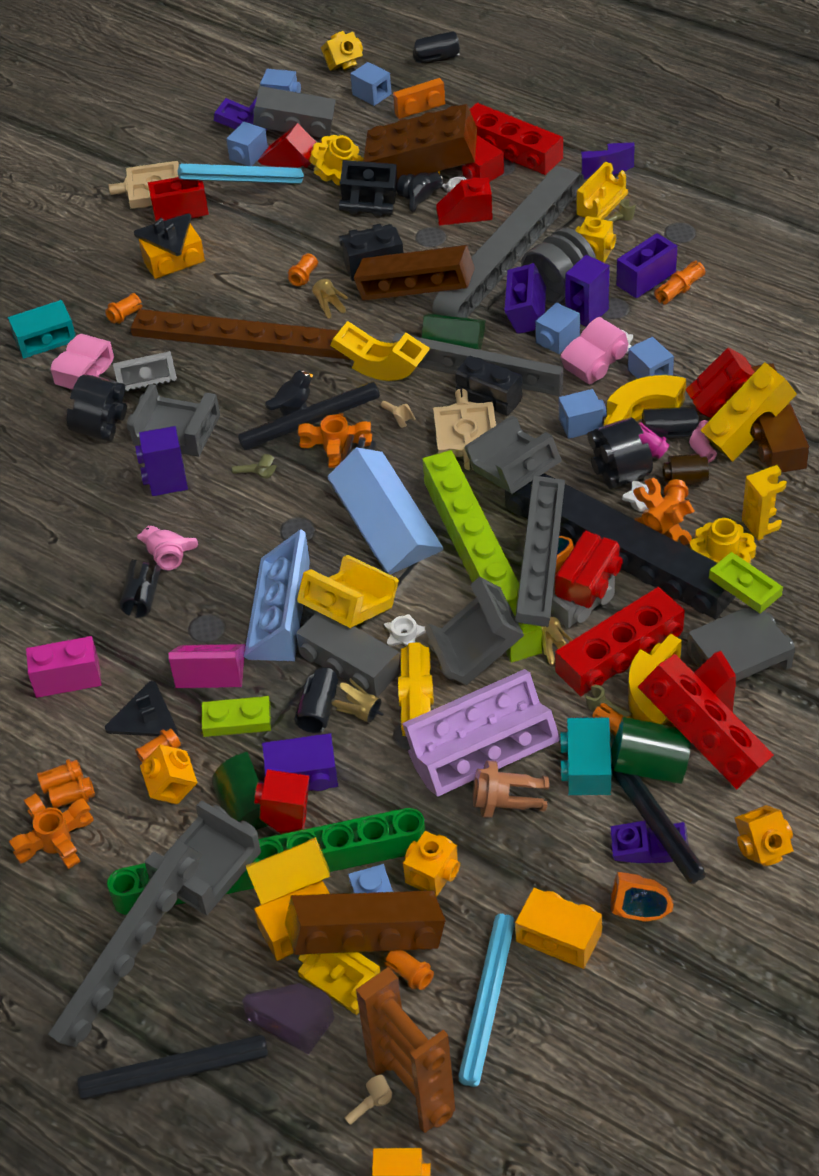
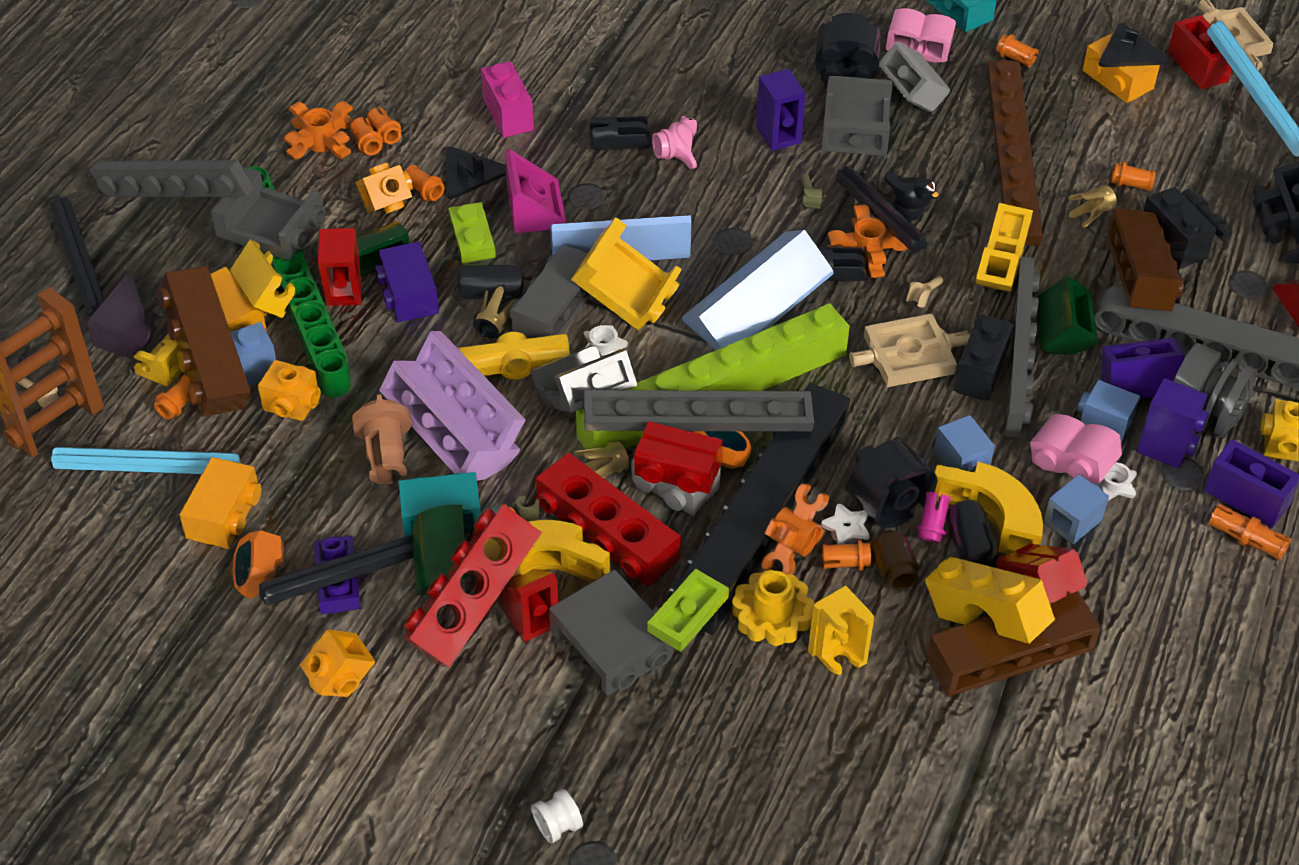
camera: 75 degrees right, 0 degrees up
(511, 456) = (853, 382): dark grey panel -> none

